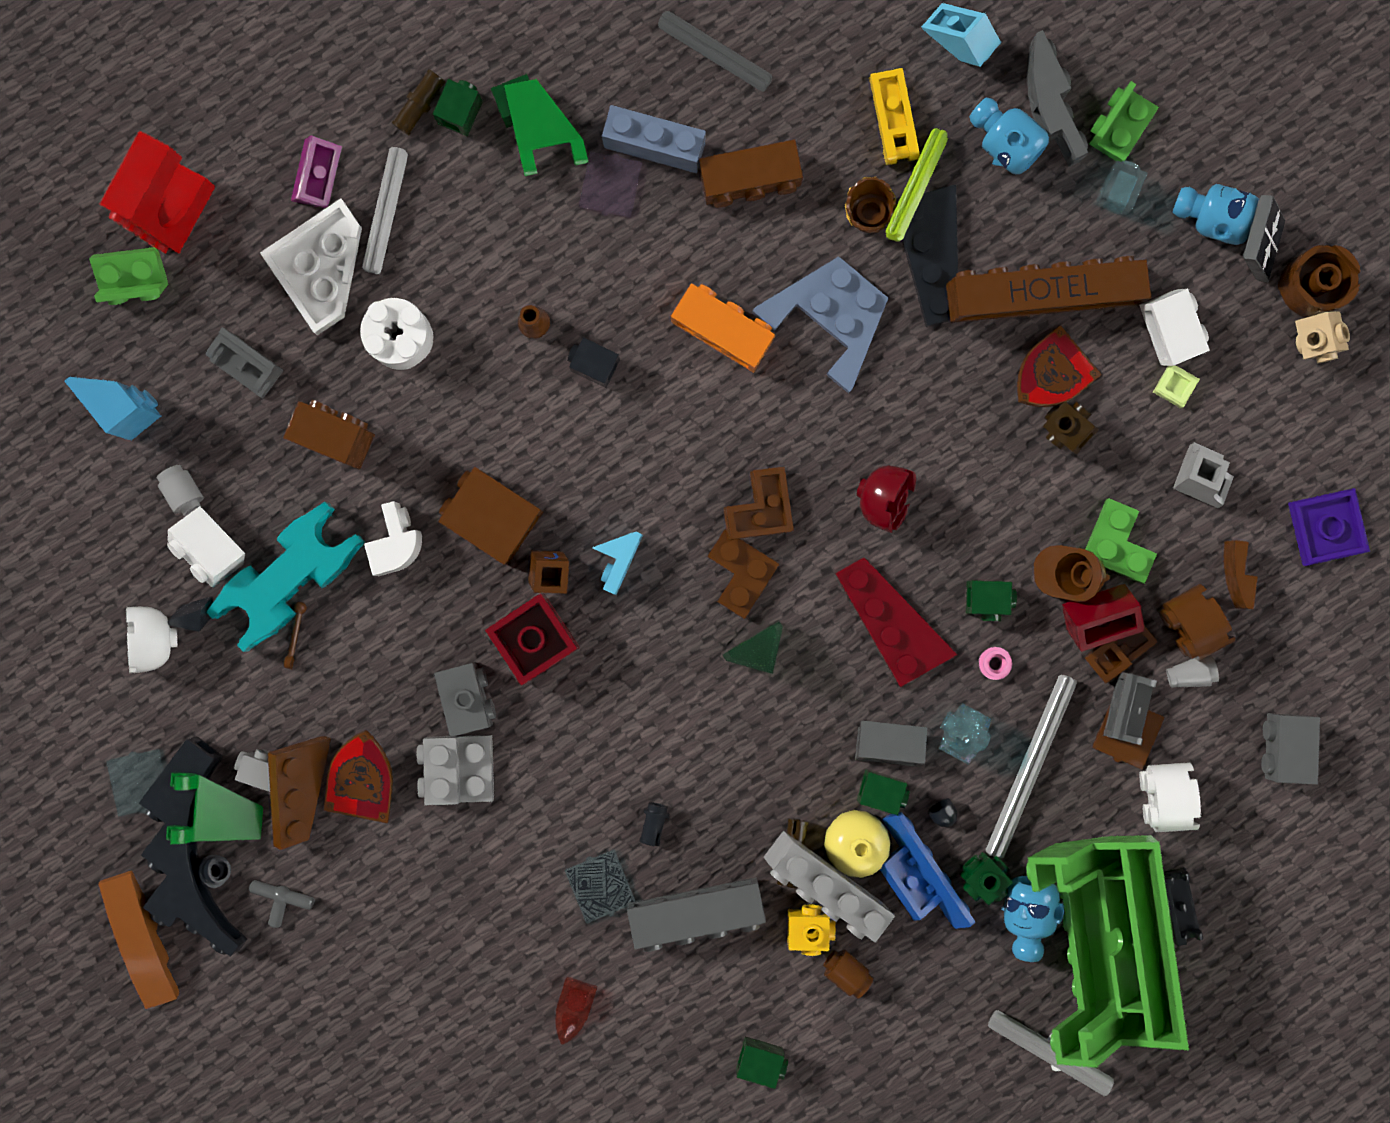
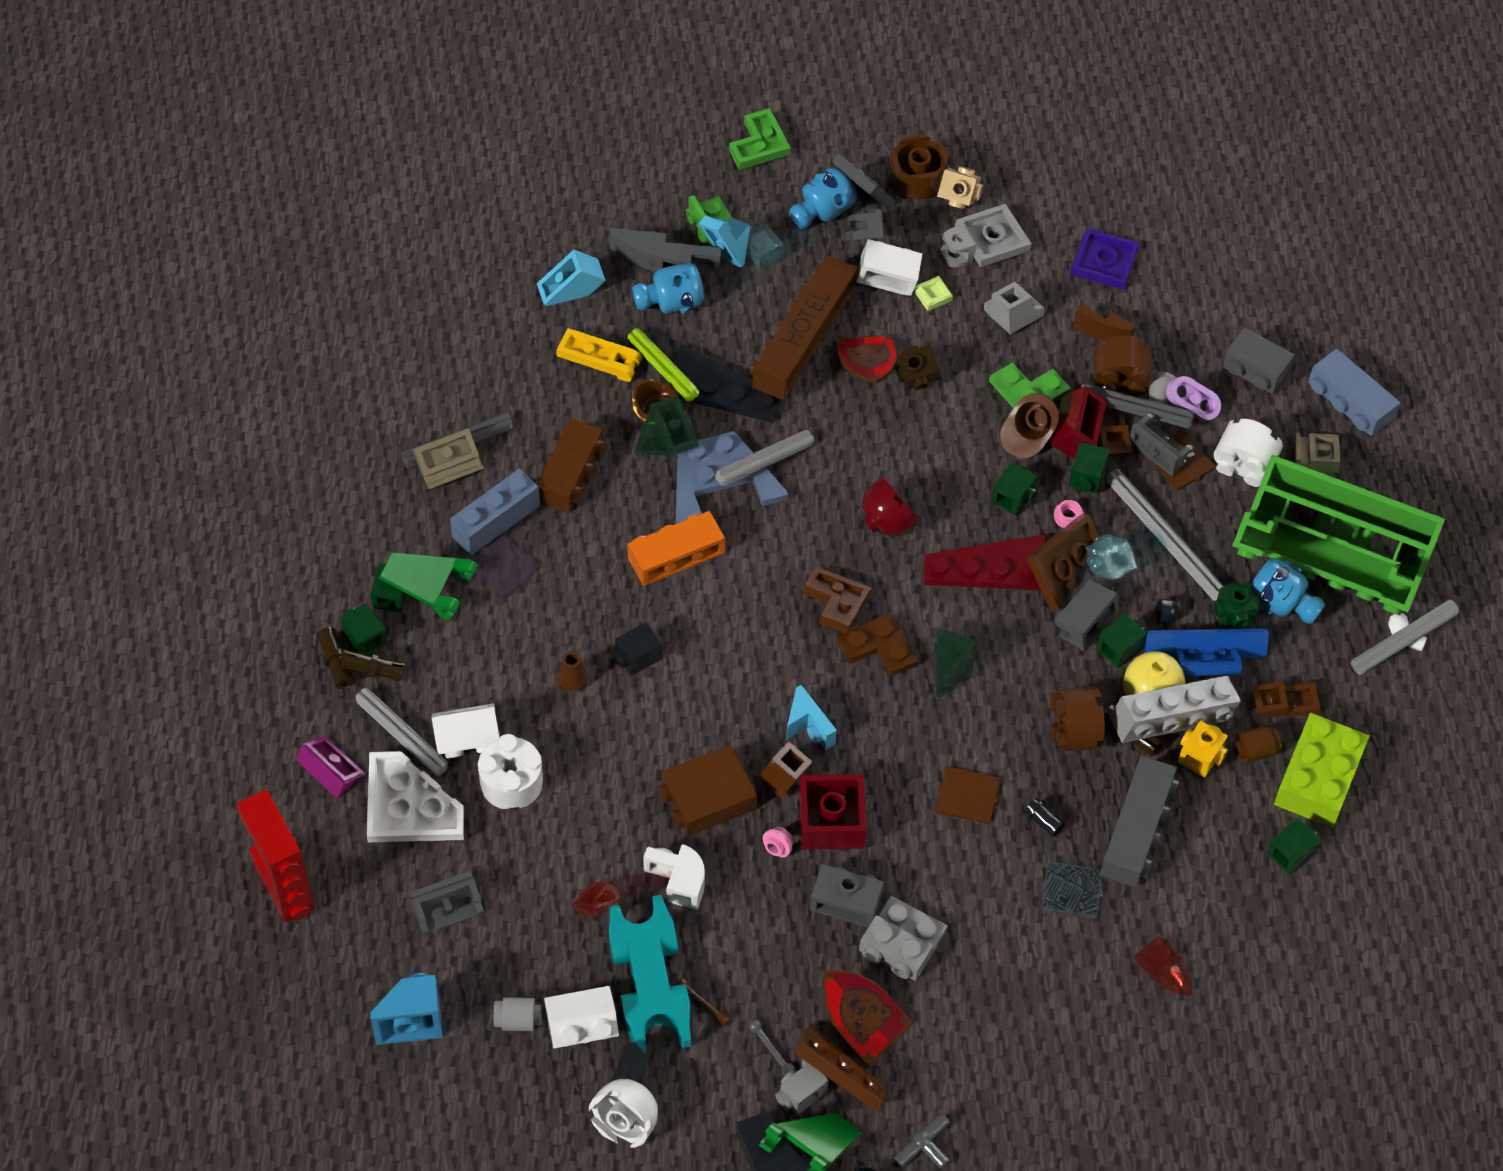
camera: 65 degrees left, 30 degrees down
(129, 275) = (306, 948): bright green bracket -> none
(299, 694) = (756, 1027): none -> dark grey hinge
(323, 432) = (559, 861): reddish brown brick -> none
(324, 489) = (597, 899): none -> clear red plate
(412, 266) = (465, 729): none -> white brick
(426, 139) = (372, 665): none -> dark brown pin
(480, 607) = (778, 841): none -> bright pink plate
(637, 741) = (967, 795): none -> reddish brown piece
(684, 56) = (448, 458): none -> dark tan plate
(763, 802) = (1077, 719): none -> reddish brown brick
(841, 238) = (666, 430): none -> clear green slope
(855, 1048) = (1321, 770): none -> lime brick
(872, 346) = (764, 457): none -> light grey axle
(917, 973) = (1281, 700): none -> reddish brown slope
(931, 685) = (1061, 558): none -> reddish brown wing
(1055, 656) = (1088, 468): none -> dark green brick
(1104, 152) = (730, 236): none -> medium azure slope
(1160, 663) = (1142, 407): none -> dark grey axle
(1201, 279) = (870, 225): none -> dark grey hinge
(1204, 707) = (1192, 396): none -> lavender plate
(1215, 863) = (1318, 452): none -> dark tan plate
(1253, 112) = (765, 143): none -> bright green plate
(1261, 388) = (973, 238): none -> light grey plate
(1313, 859) = (1353, 392): none -> sand blue brick

